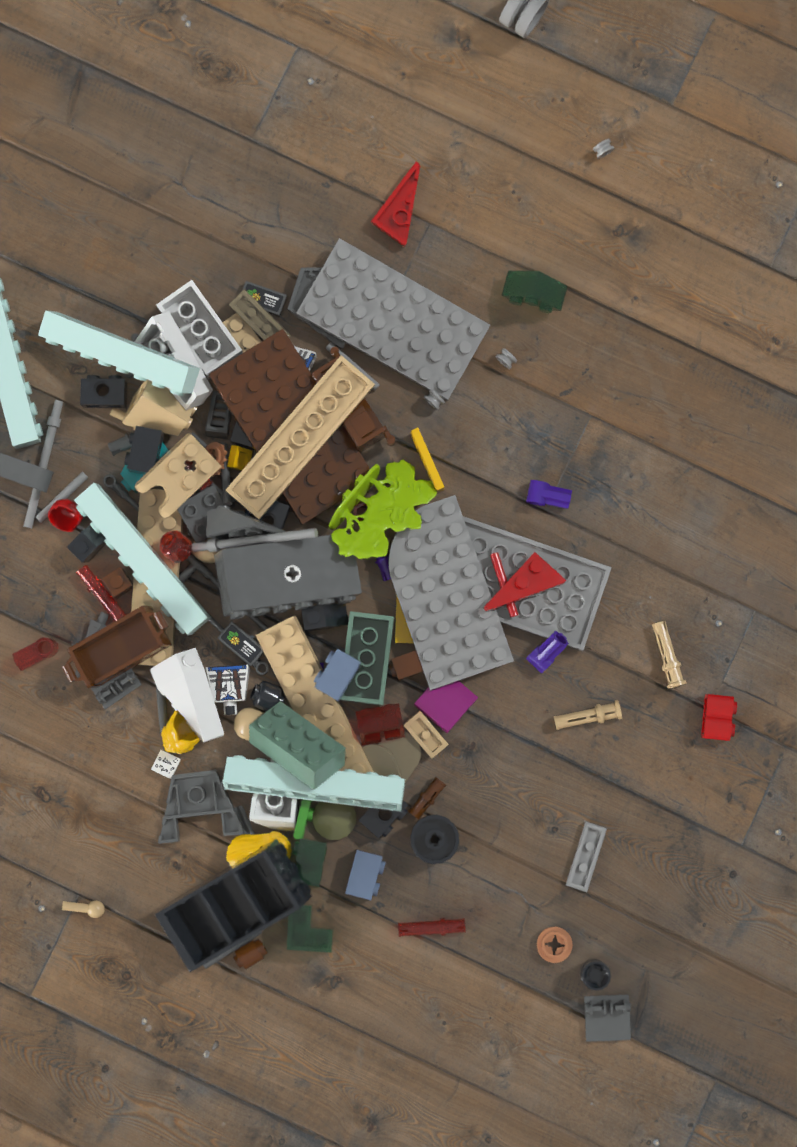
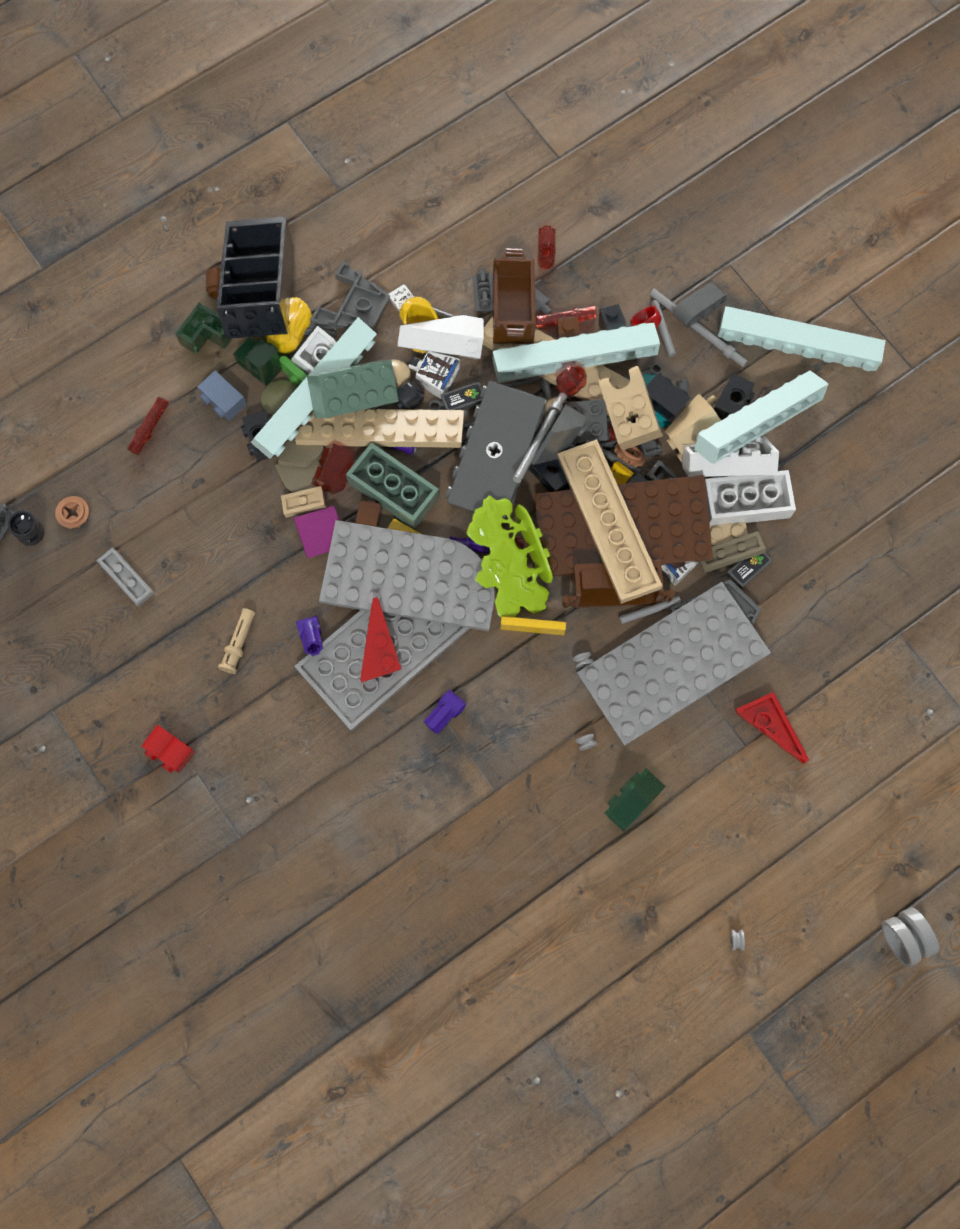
camera: 115 degrees right, 10 degrees down
(94, 909) = (322, 195): tan bar -> none
(324, 617) = (445, 469): black slope -> none
(337, 674) = (390, 447): sand blue brick -> none
(427, 798) = (252, 476): reddish brown pin -> none
(434, 852) = (214, 462): black wheel -> none
(502, 581) = (398, 631): red bar -> none
(671, 665) = (237, 734): tan pin -> none

